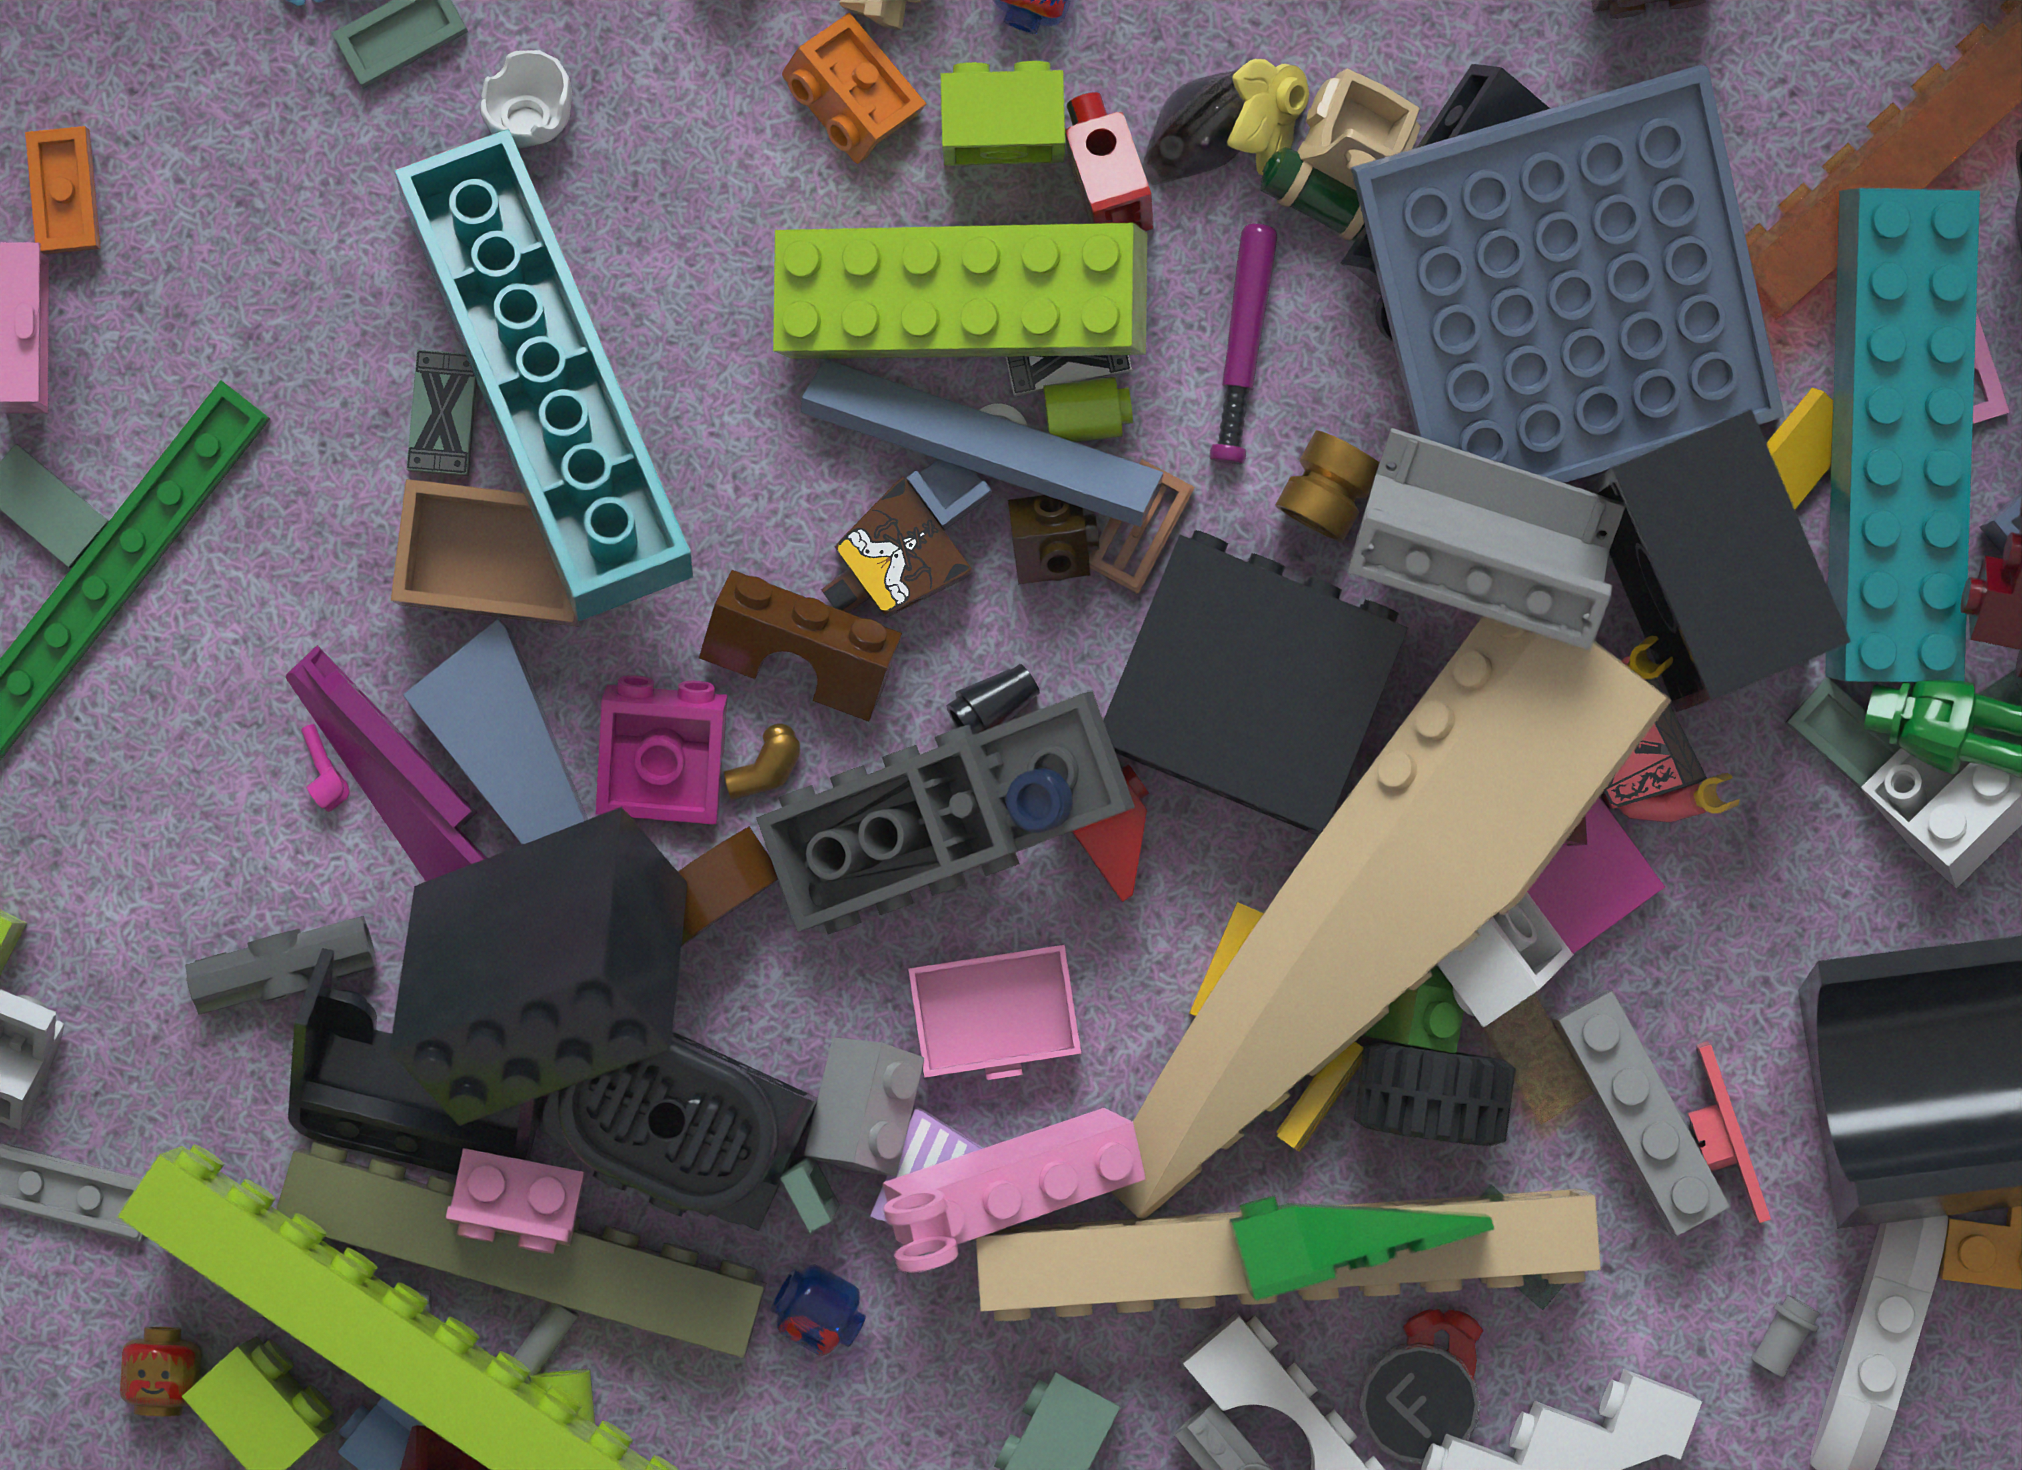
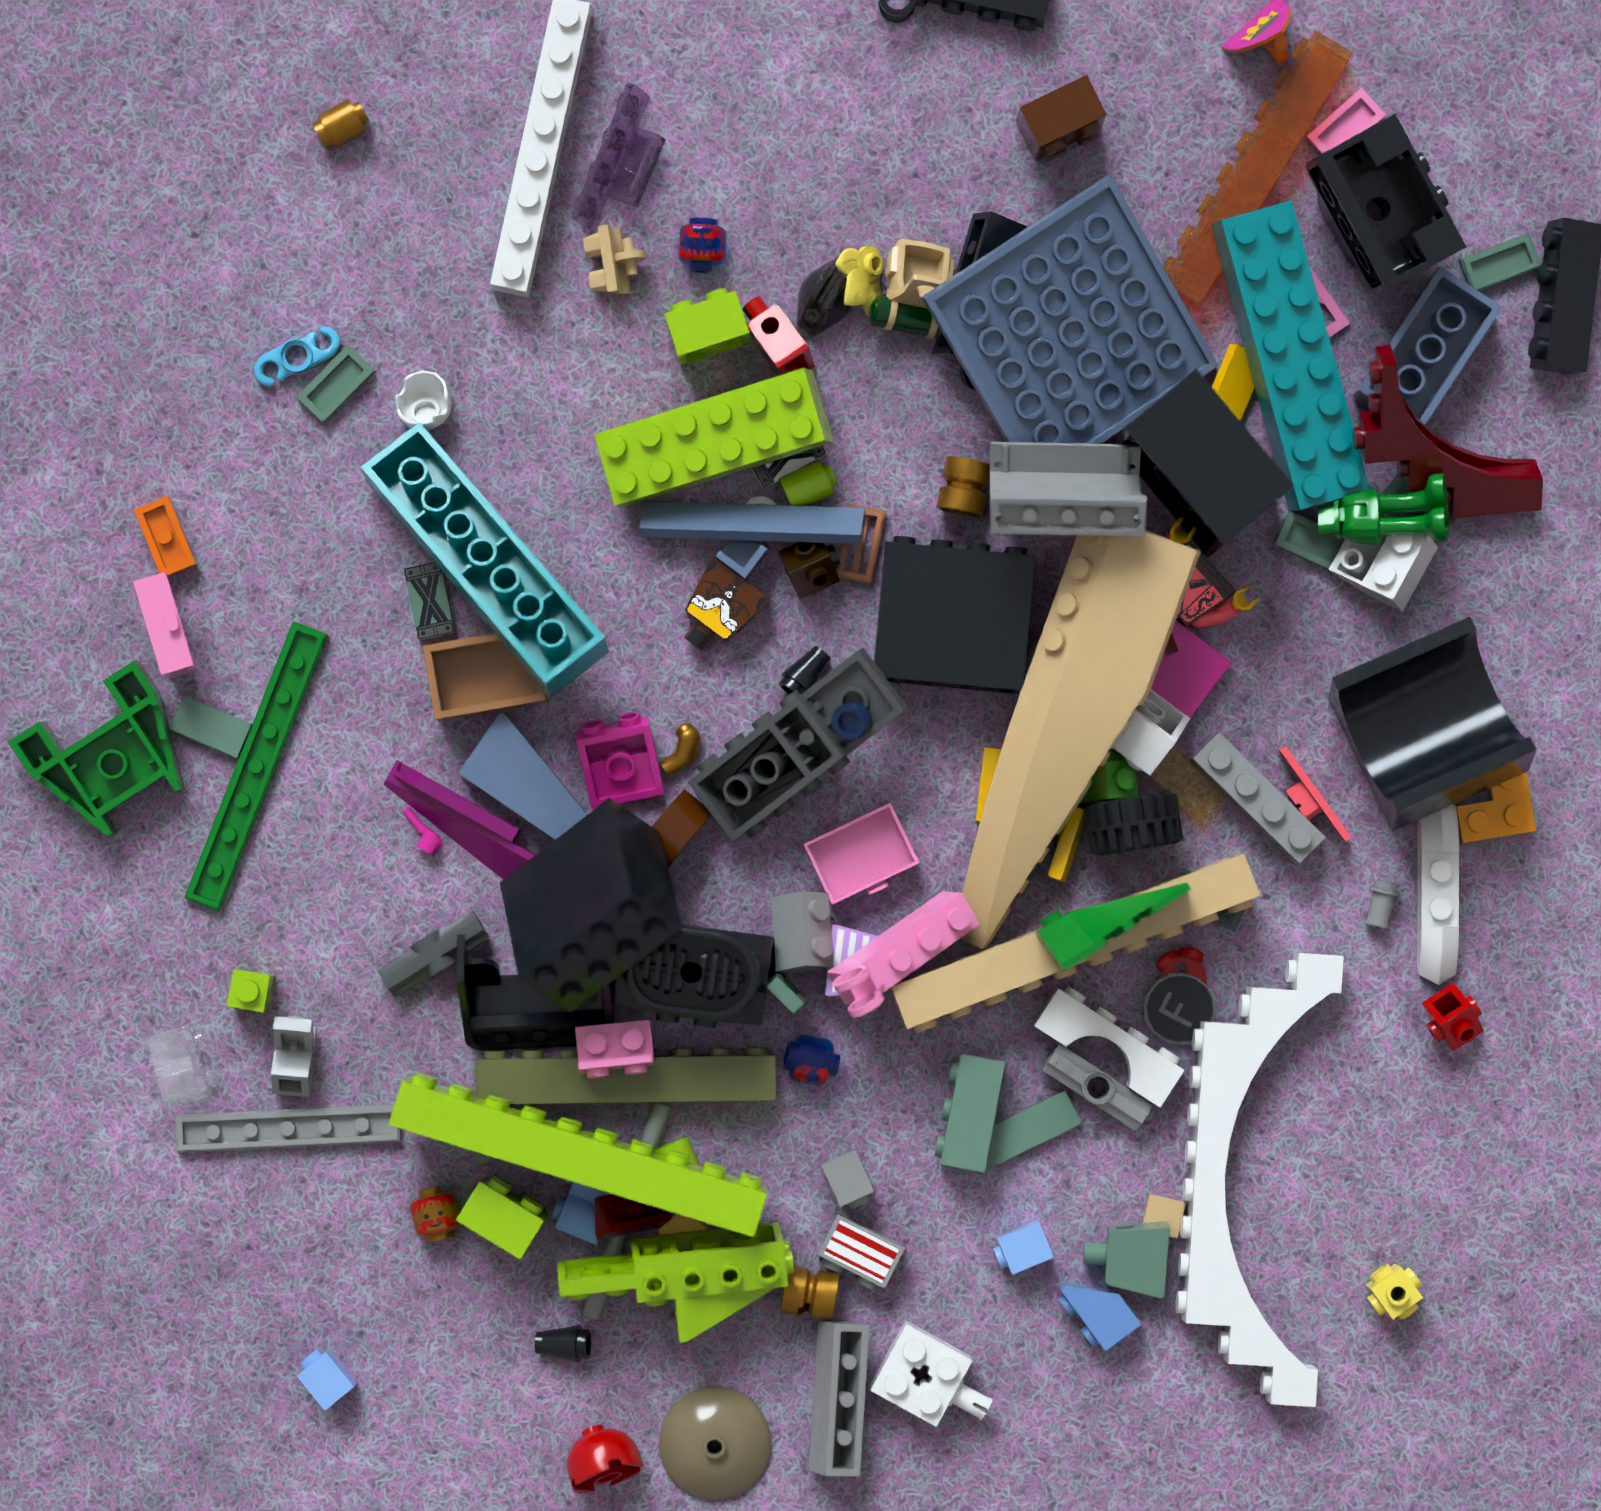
camera: 20 degrees left, 0 degrees up
(845, 650) = (708, 668): reddish brown arch -> none
(851, 87) = (612, 337): orange bracket -> none
(1117, 840) = (902, 732): red slope -> none
(1246, 324) = (886, 403): magenta piece -> none

